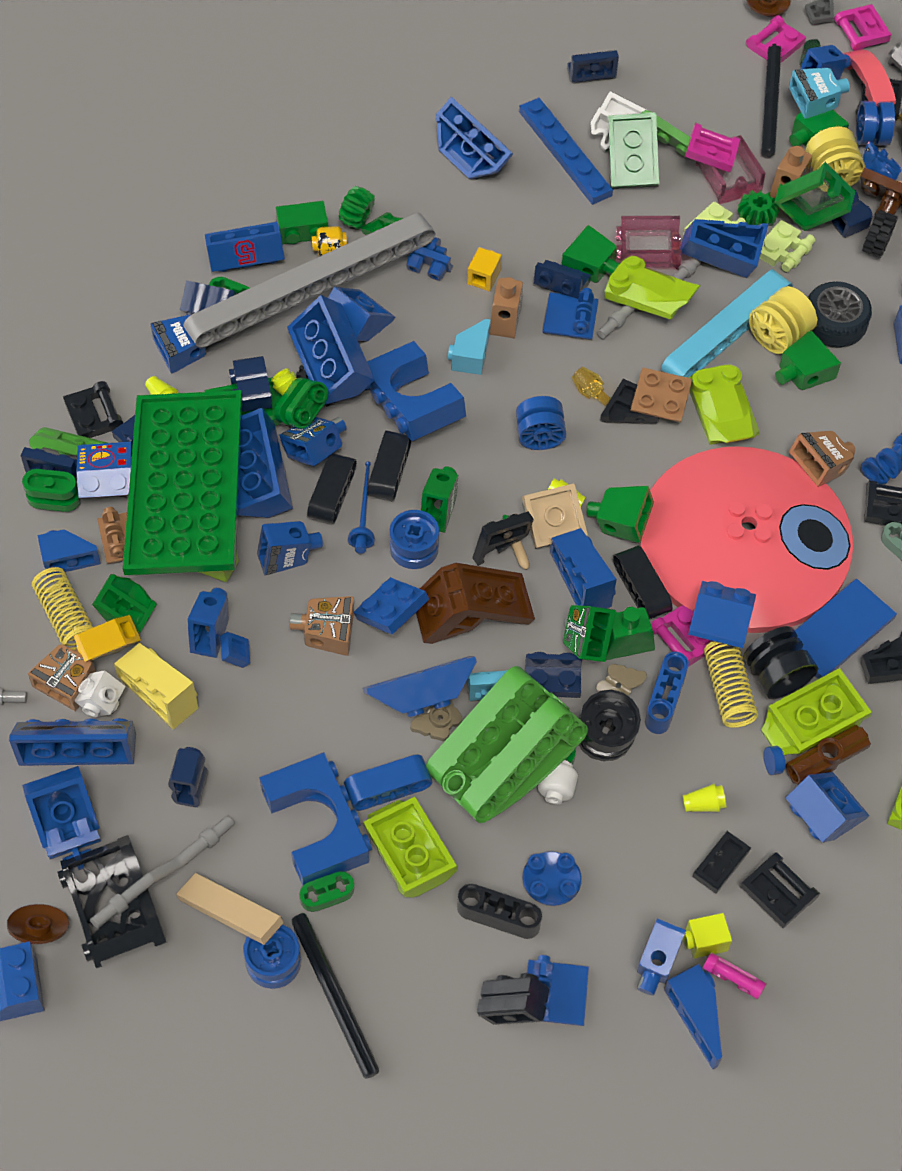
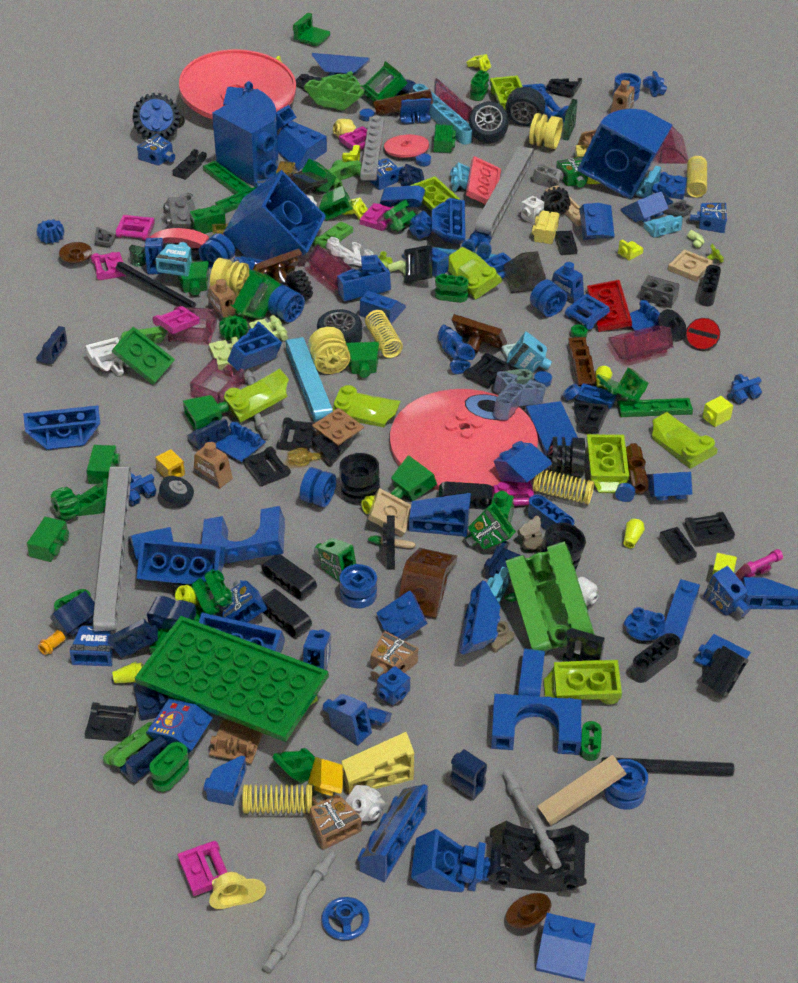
camera: 60 degrees left, 15 degrees down
(164, 304) = (47, 645): none -> light orange pin
(201, 369) = (133, 638): none -> dark blue bracket
(244, 246) = (44, 575): blue brick -> none
(281, 644) = (393, 685): none -> blue brick
(328, 239) = (79, 531): yellow head -> none
(361, 536) = (335, 612): blue sword -> none
(445, 207) = (100, 461): none -> green brick
(448, 294) = (176, 490): none -> black wheel
(450, 818) = (591, 646): none -> black plate
(470, 348) = (230, 498): medium azure slope -> none
(547, 354) = (262, 470): none -> black plate
(566, 151) = (104, 391): blue plate -> none
(584, 455) = (359, 476): none -> black wheel
(599, 910) = (681, 608): none -> blue slope
(626, 368) = (301, 438): none -> black plate
(822, 455) = (436, 379): medium nougat torso -> none
(836, 237) = (286, 303): none -> blue wheel
(848, 373) = (377, 339): none -> light yellow piece
(854, 553) = (514, 395): none -> sand blue beam

